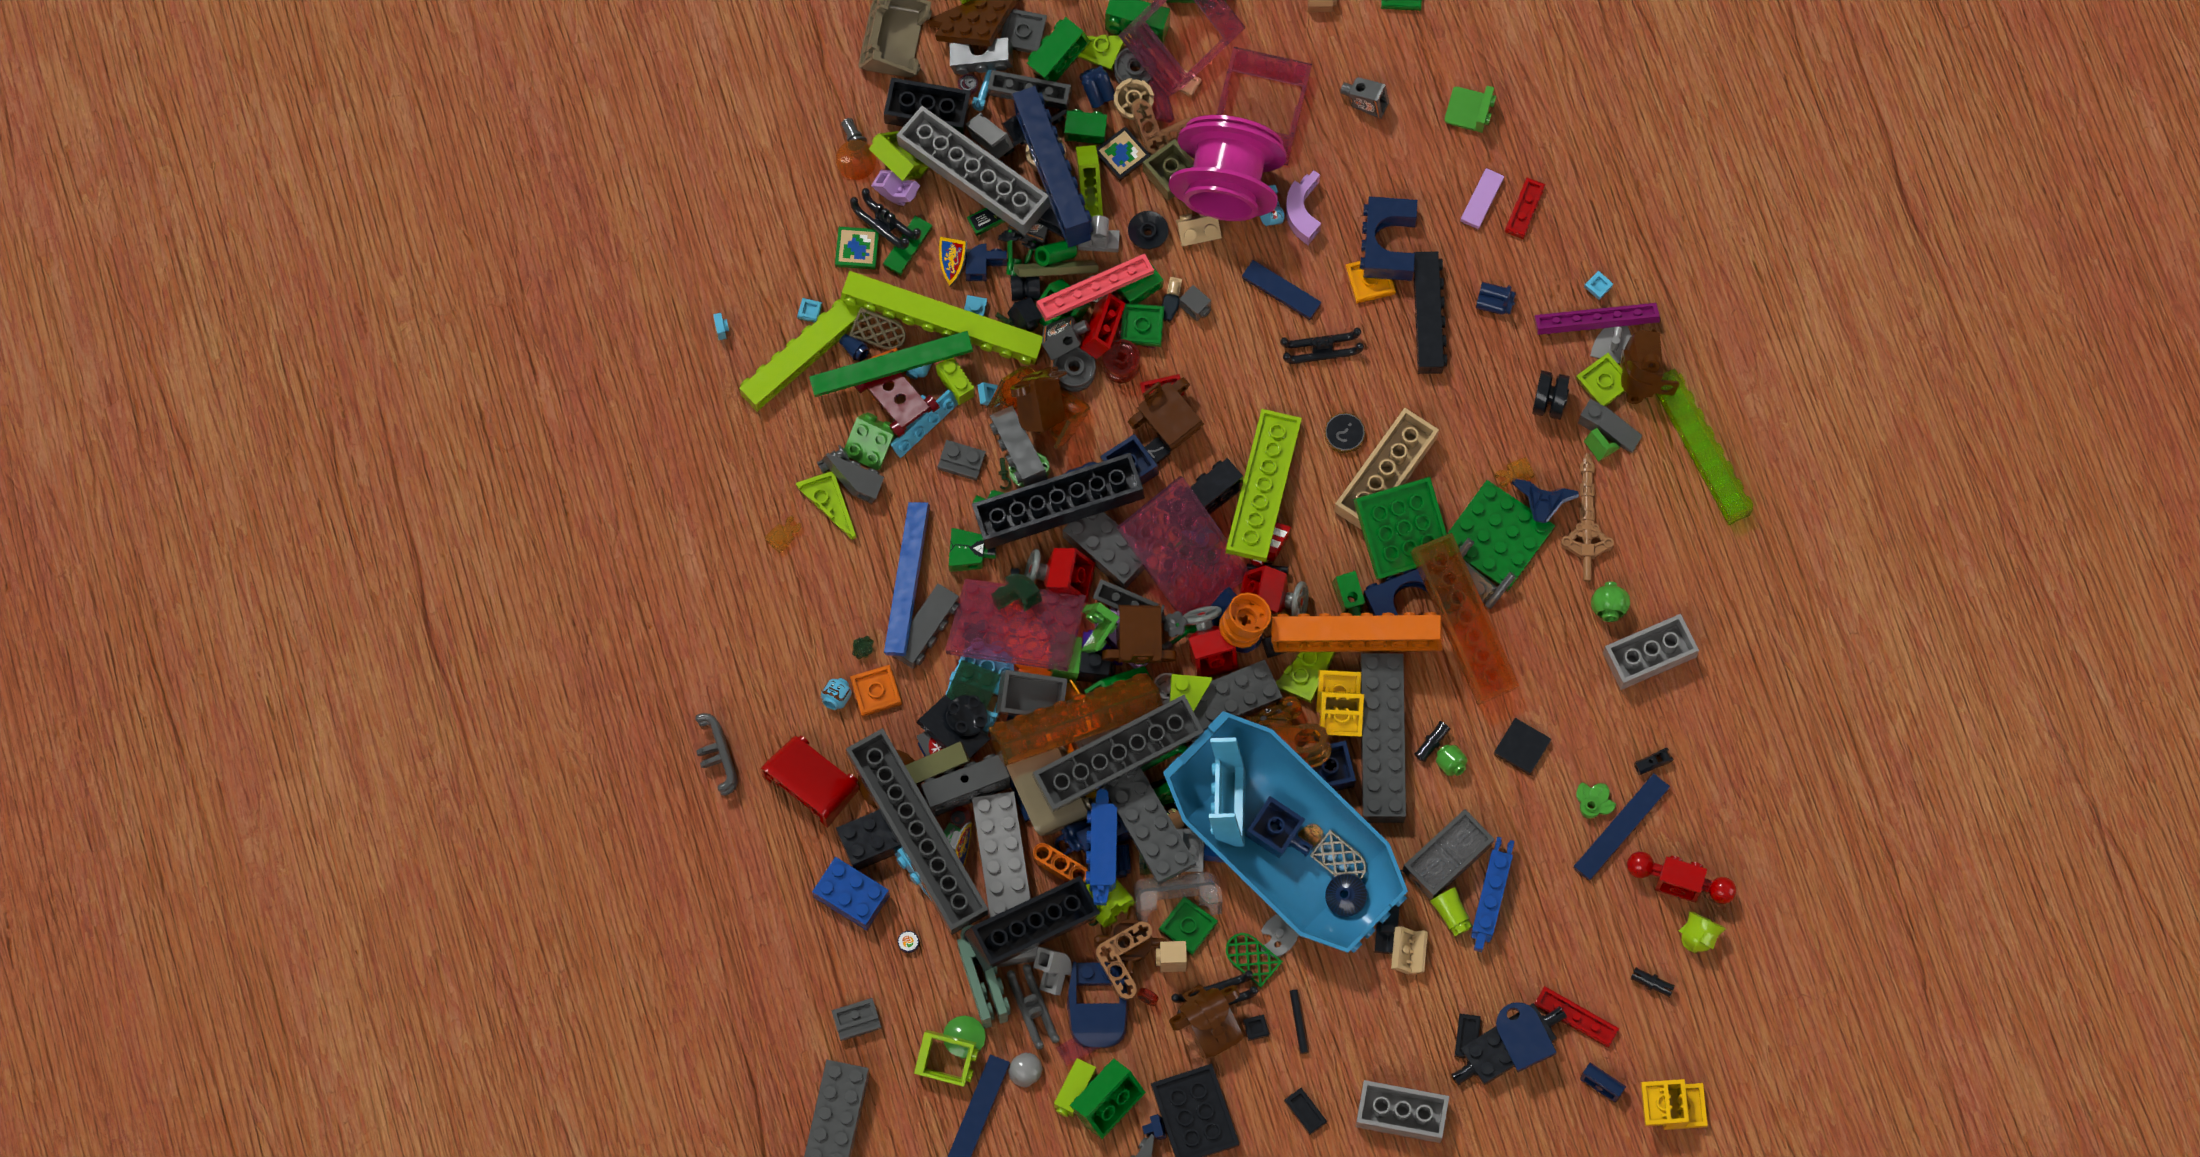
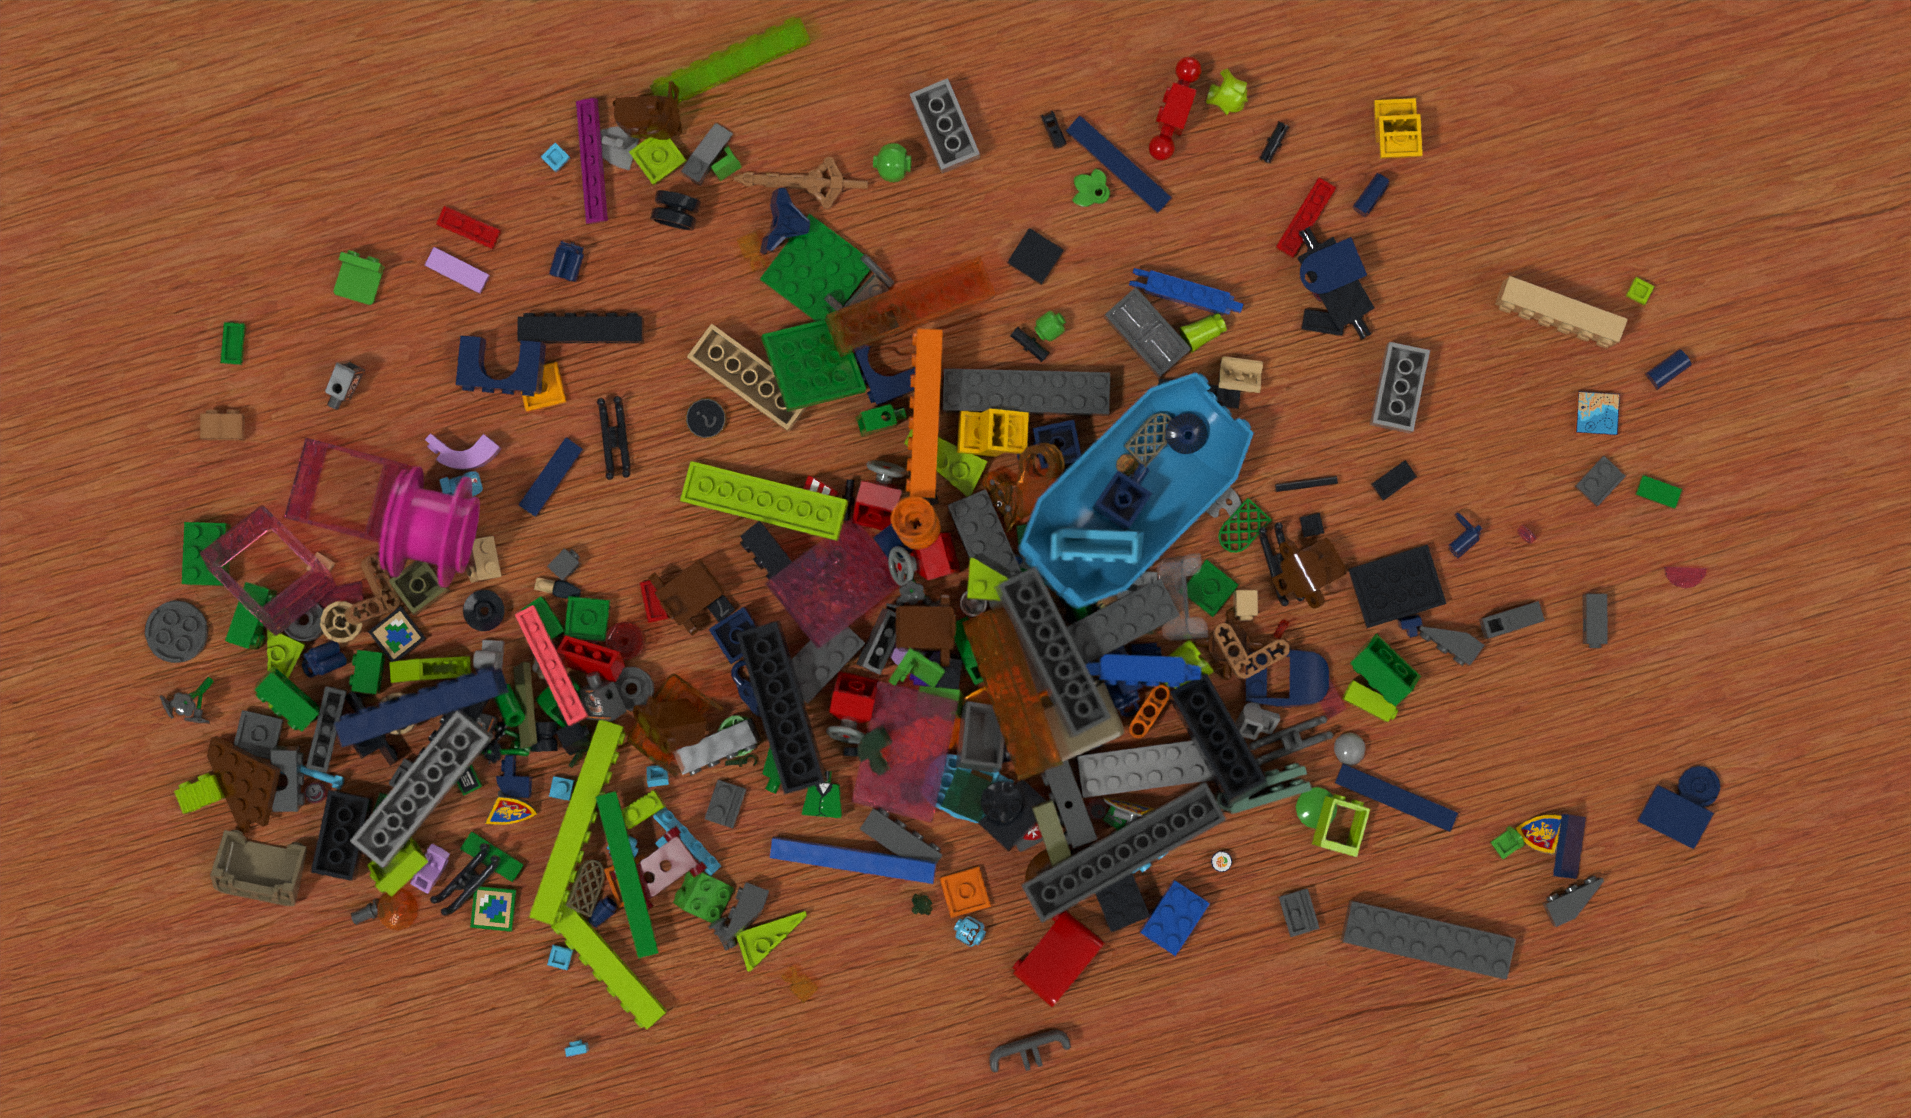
camera: 85 degrees left, 15 degrees up
(989, 135) = (377, 771): light grey window -> none

